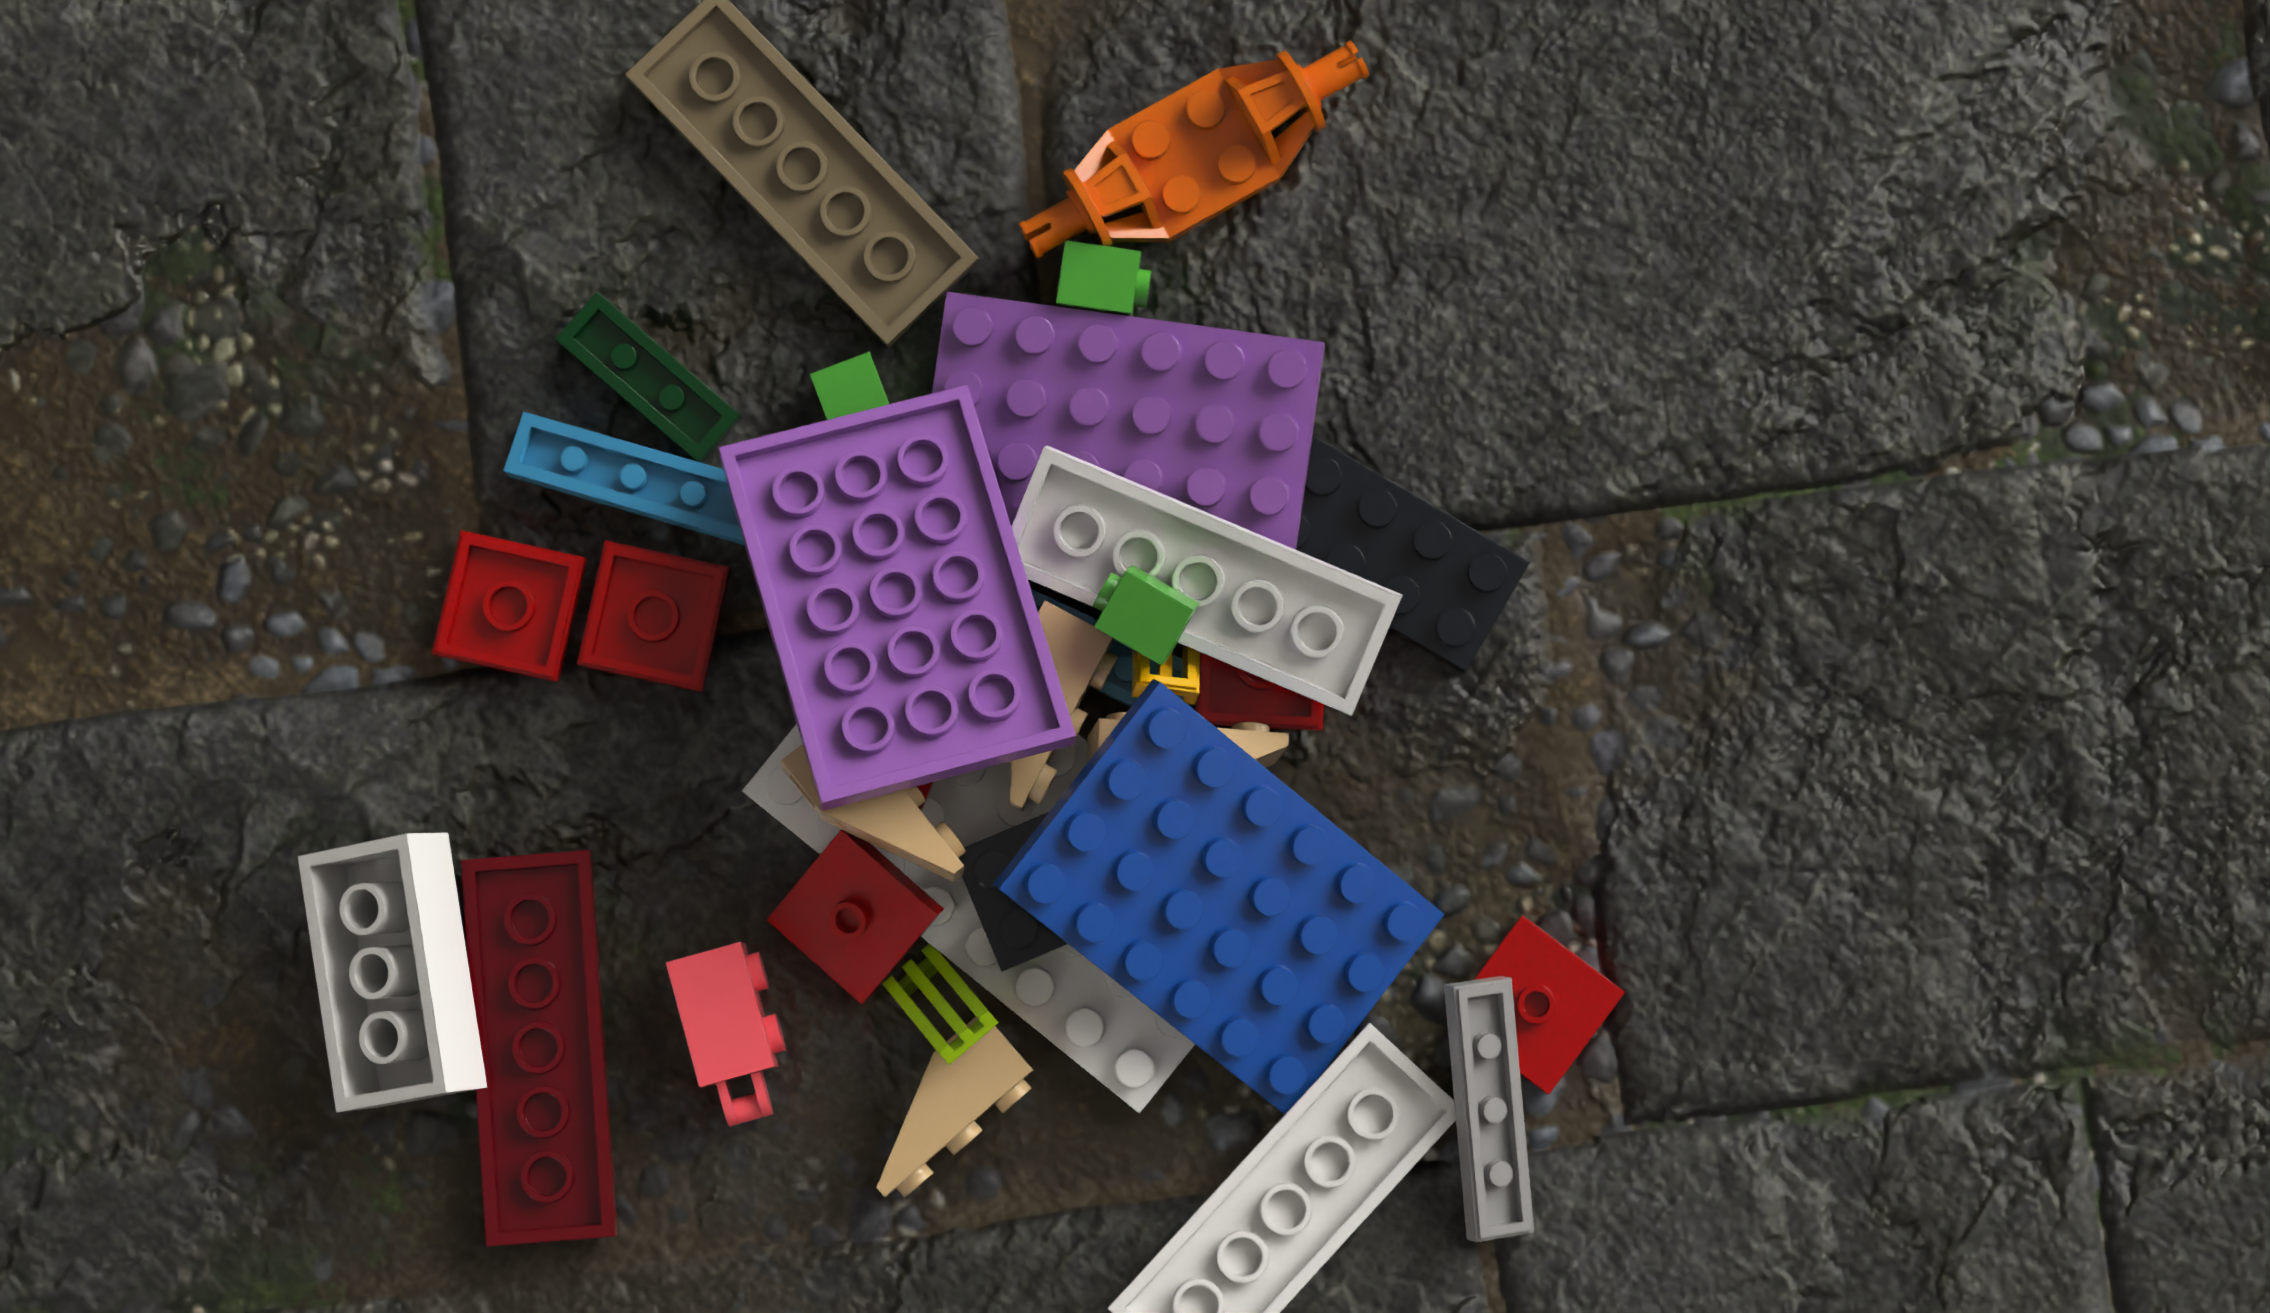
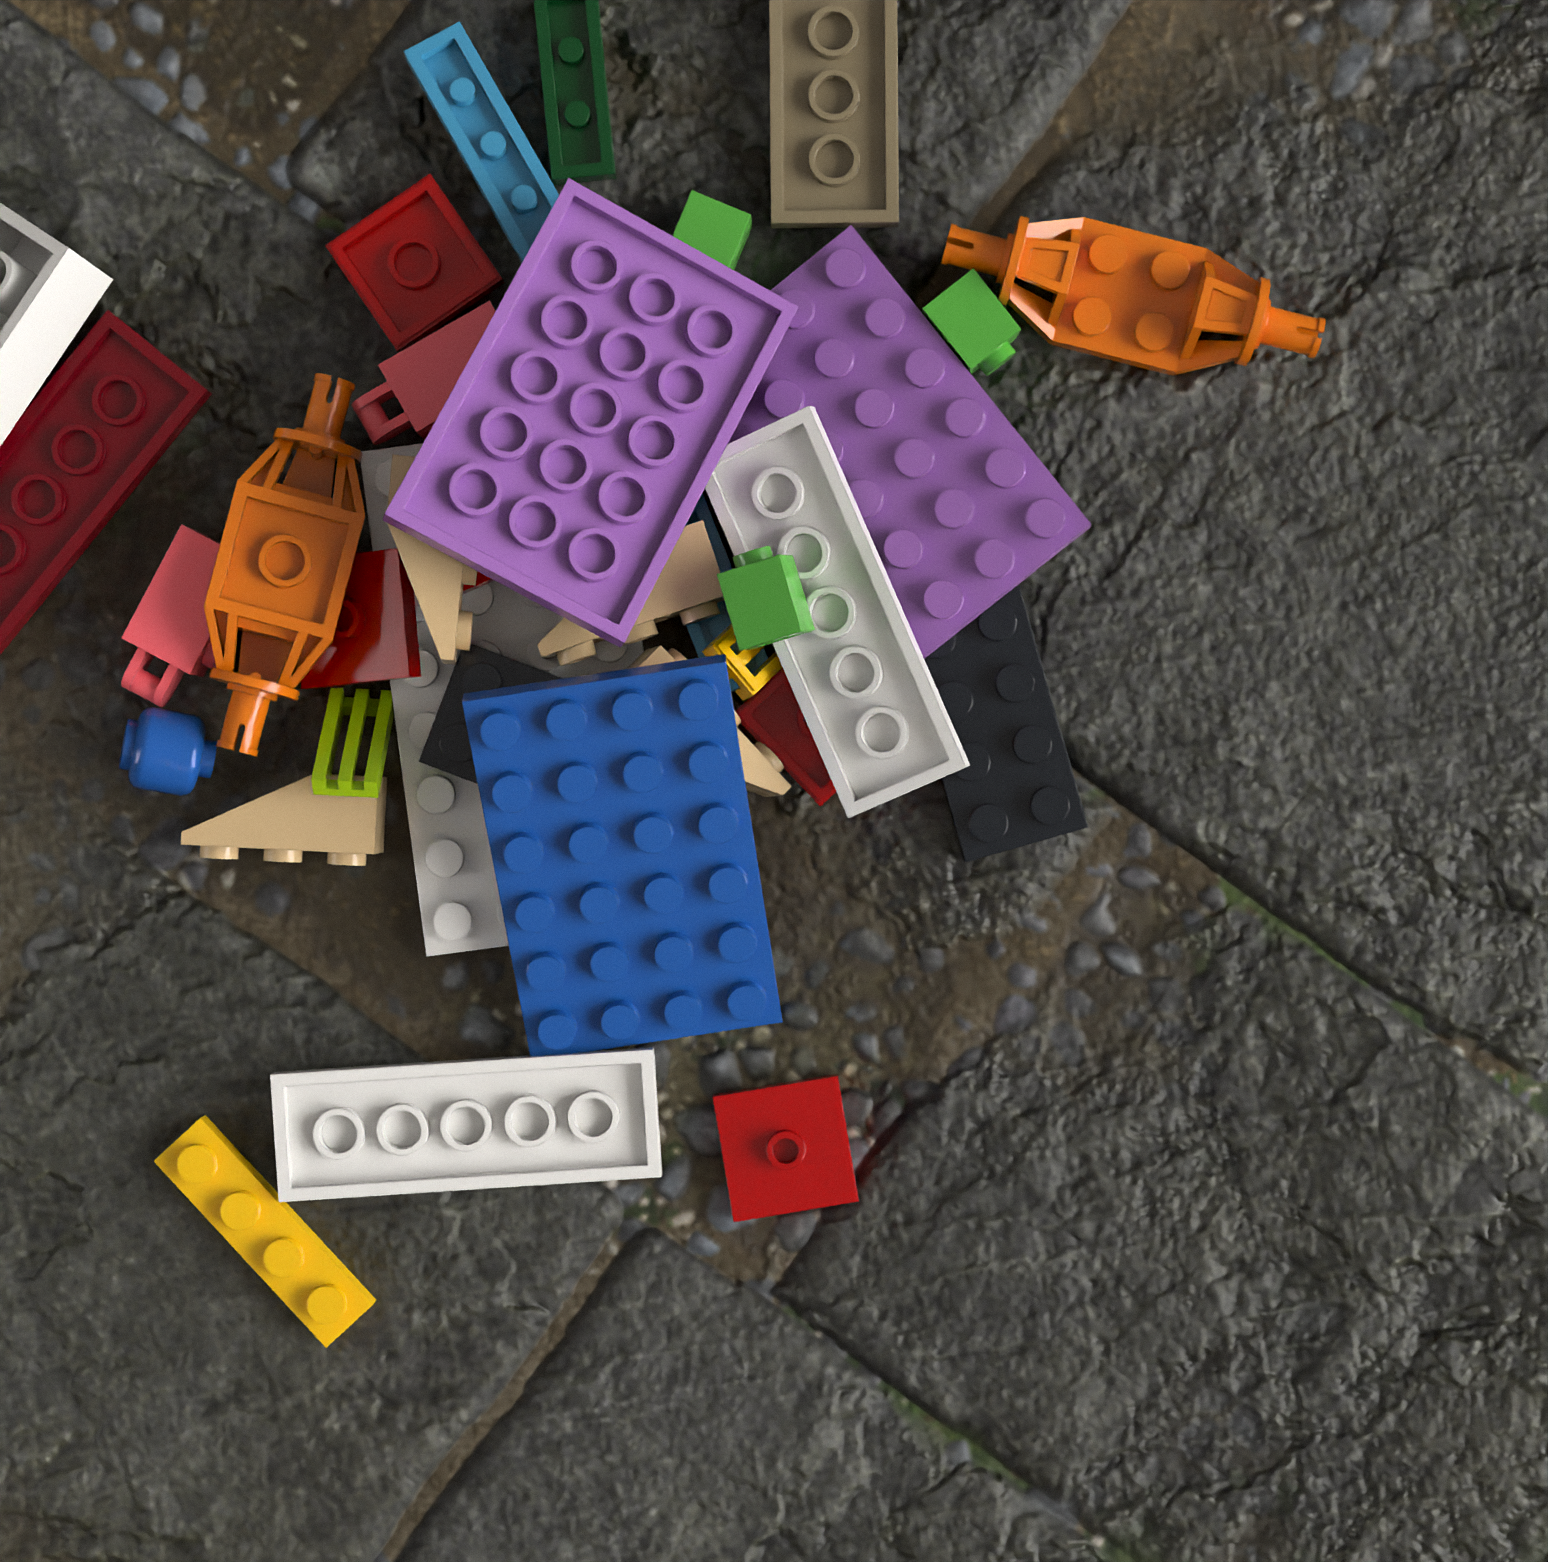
camera: 45 degrees right, 5 degrees up
(509, 606) = (316, 157): red plate -> none
(746, 687) = (422, 377): none -> coral brick
(770, 920) = (284, 563): none -> orange plate
(807, 1143) = (166, 751): none -> blue head
(1489, 1108) = (680, 1192): light grey tile -> none

